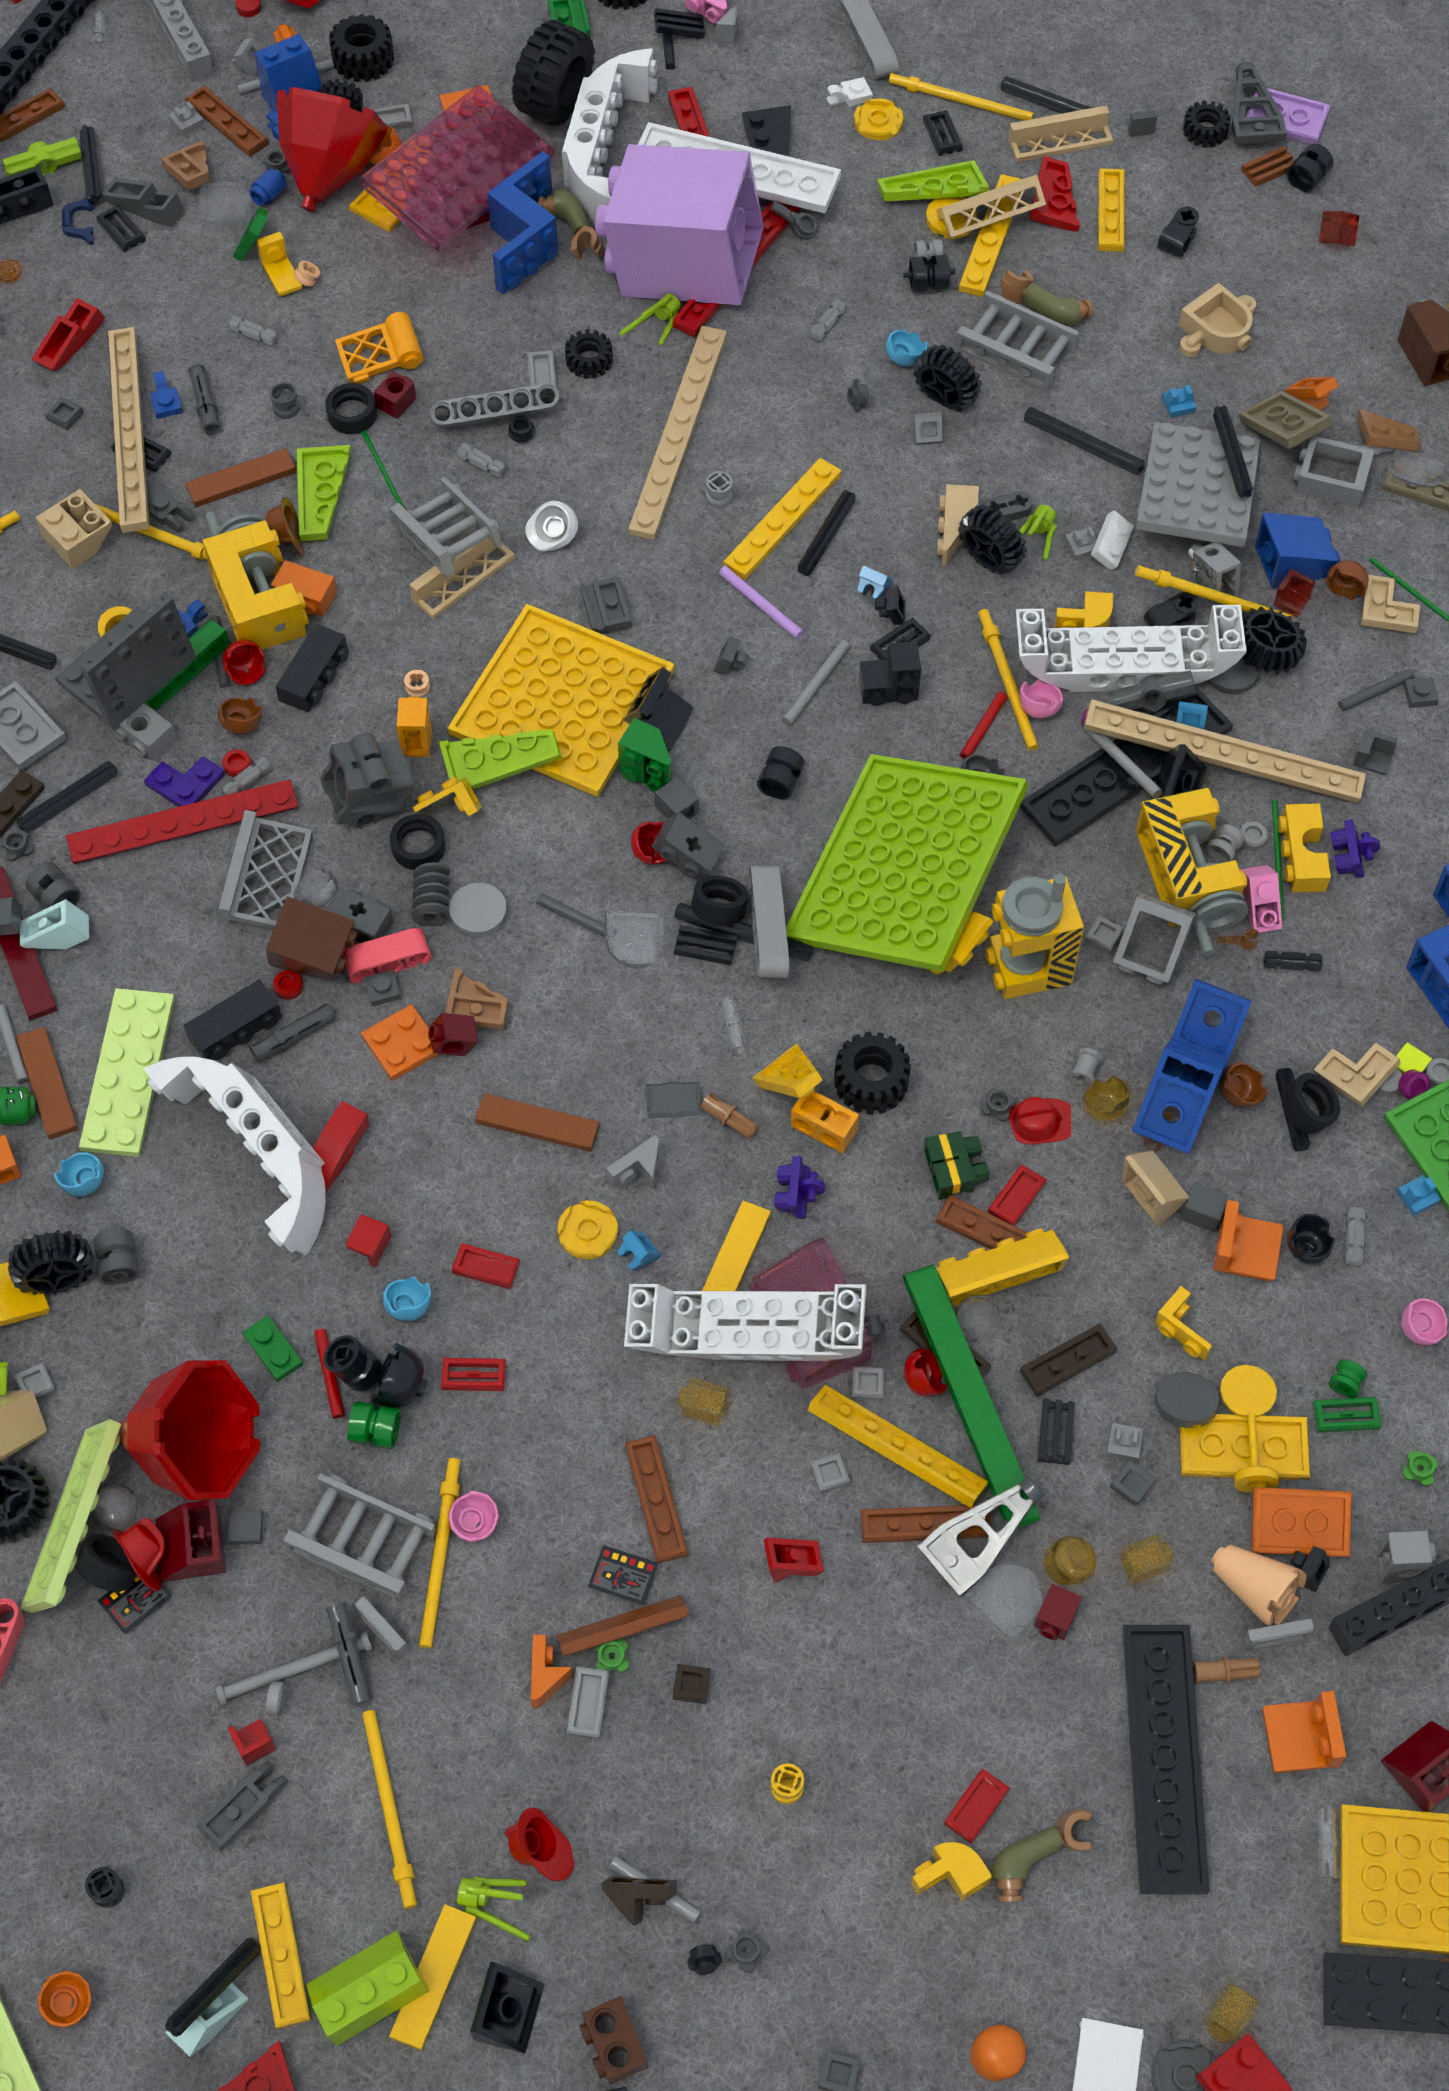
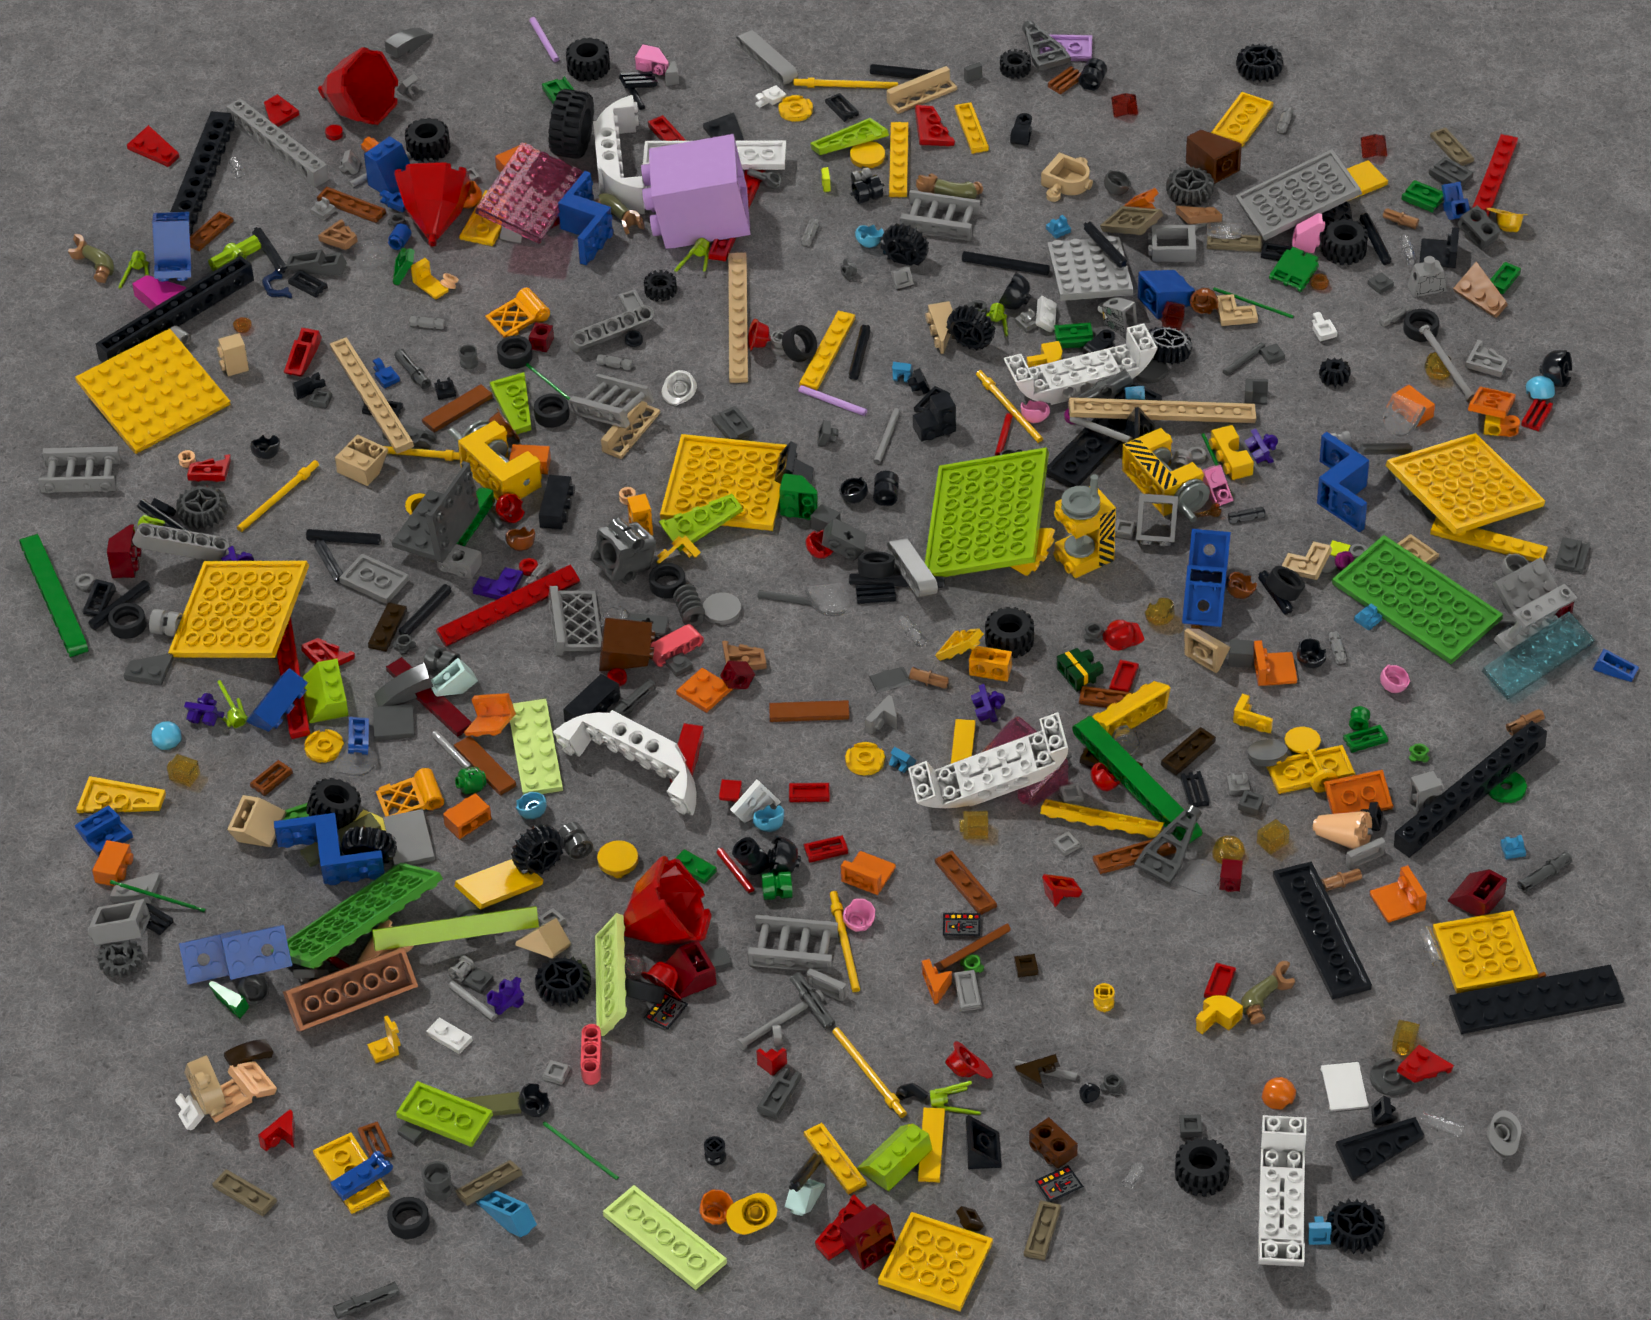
camera: 15 degrees left, 15 degrees down
(49, 391) = (307, 385): none -> black plate
(85, 1008) = (493, 714): none -> orange bracket
(108, 2033) = (751, 1213): none -> yellow piece
(167, 1303) = (617, 858): none -> yellow tile
(236, 442) = (445, 389): none -> black tile
(368, 532) = (551, 420): none -> black tyre
(394, 1264) = (754, 799): none -> white wing
(438, 1864) = (909, 1090): none -> black arm
(517, 1437) = (867, 872): none -> orange bracket
(693, 470) = (758, 335): none -> red piece
(726, 505) = (809, 341): none -> black tyre
(738, 759) = (854, 490): none -> black hair
(877, 242) = (825, 179): none -> neon yellow tile
(990, 196) = (888, 137): tan fence -> none
(1080, 496) = (1016, 293): none -> black cylinder
(1085, 1067) = (1140, 597): light grey bush -> none
(1134, 589) = (1073, 334): none -> green plate
(1163, 579) = (1088, 323): yellow bar -> none
(1286, 350) = (1116, 182): none -> dark grey hair
(1390, 382) = (1190, 186): none -> dark grey gear

